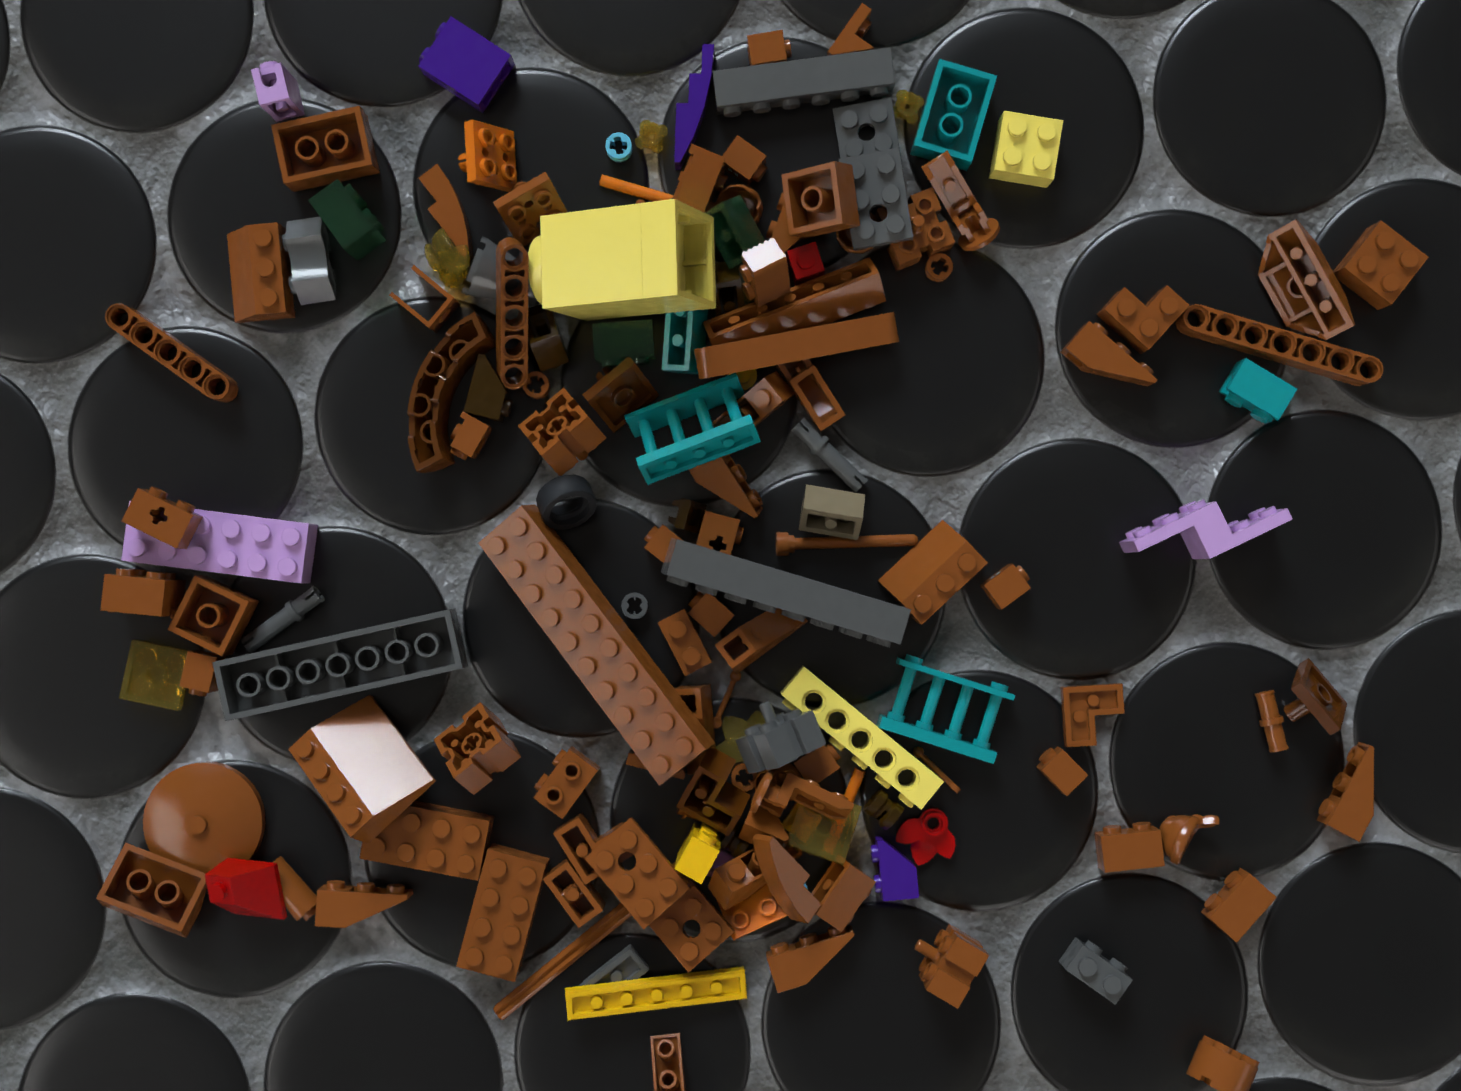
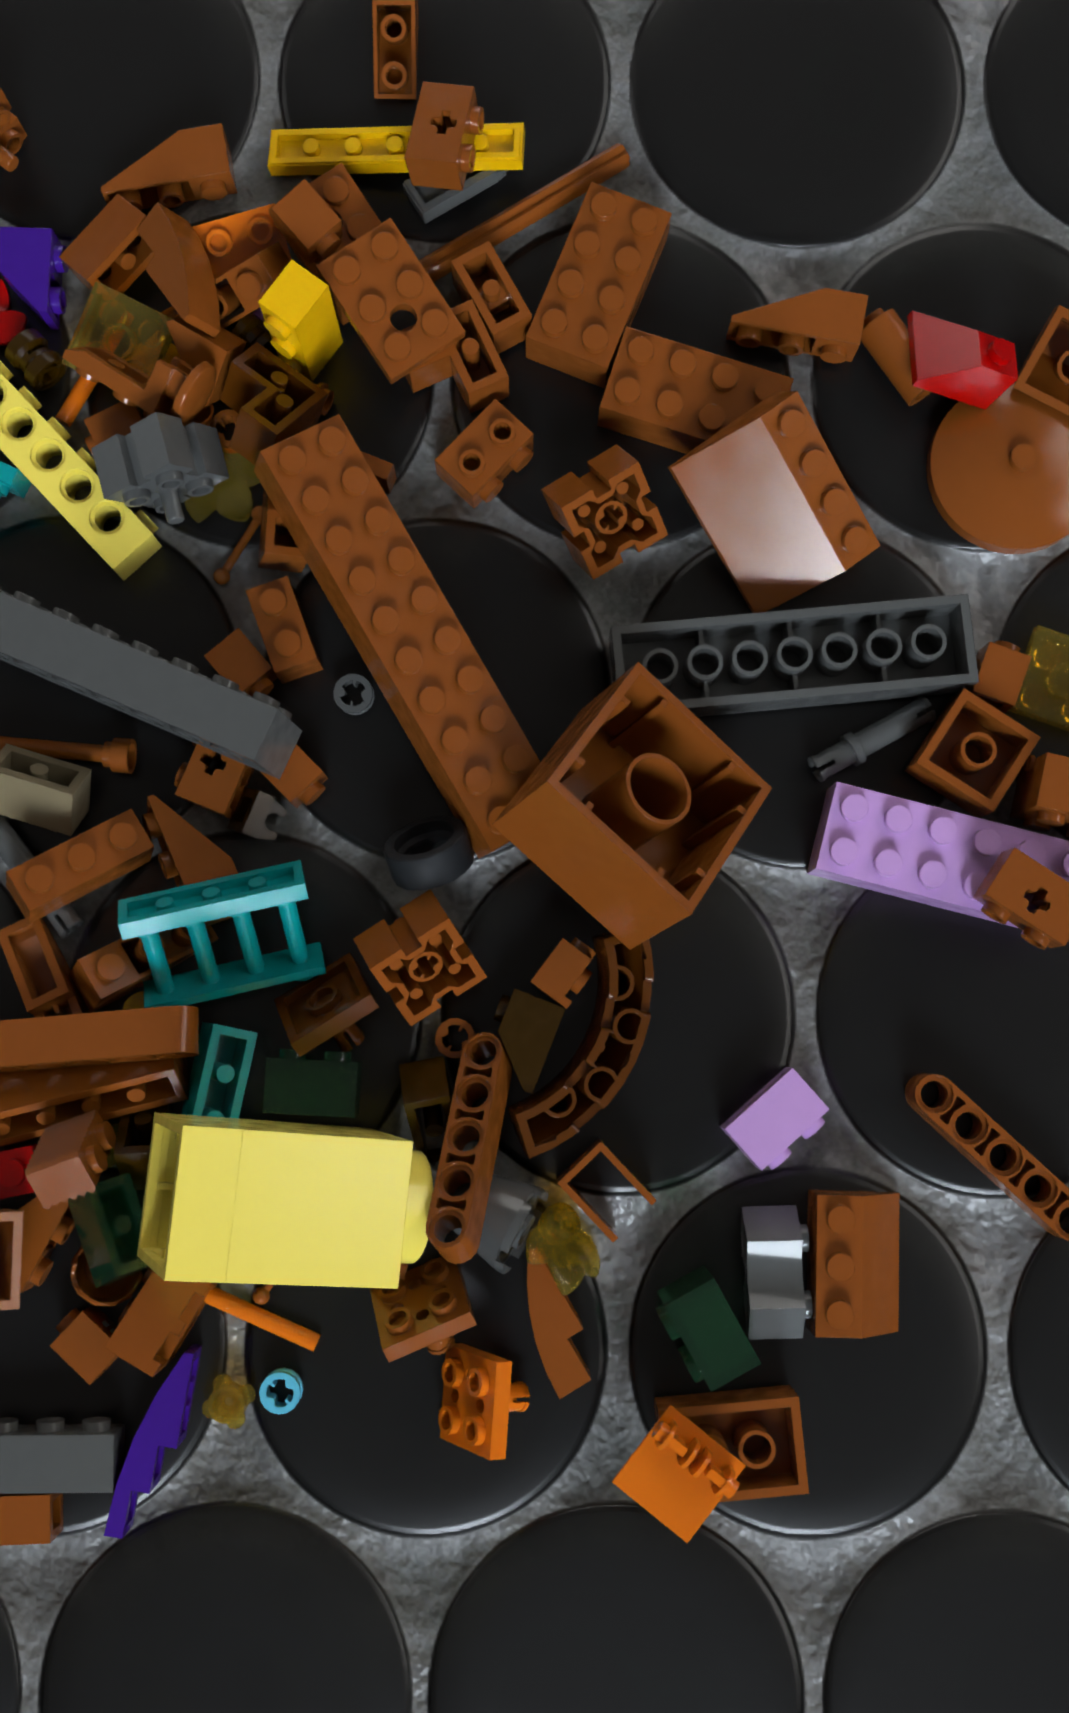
camera: 175 degrees left, 5 degrees down
(277, 91) = (794, 1548): lavender brick -> none
(319, 358) = (776, 1119): none -> lavender brick
(353, 126) = (679, 1473): none -> orange hinge
(427, 542) = (634, 808): none -> dark orange brick
(466, 64) = (498, 1555): dark purple brick -> none
(619, 1016) = (443, 136): none -> dark orange brick
(700, 920) = (308, 222): none -> dark orange brick
(756, 638) = (183, 617): dark orange slope -> none
(794, 463) = (79, 866): none -> dark orange brick

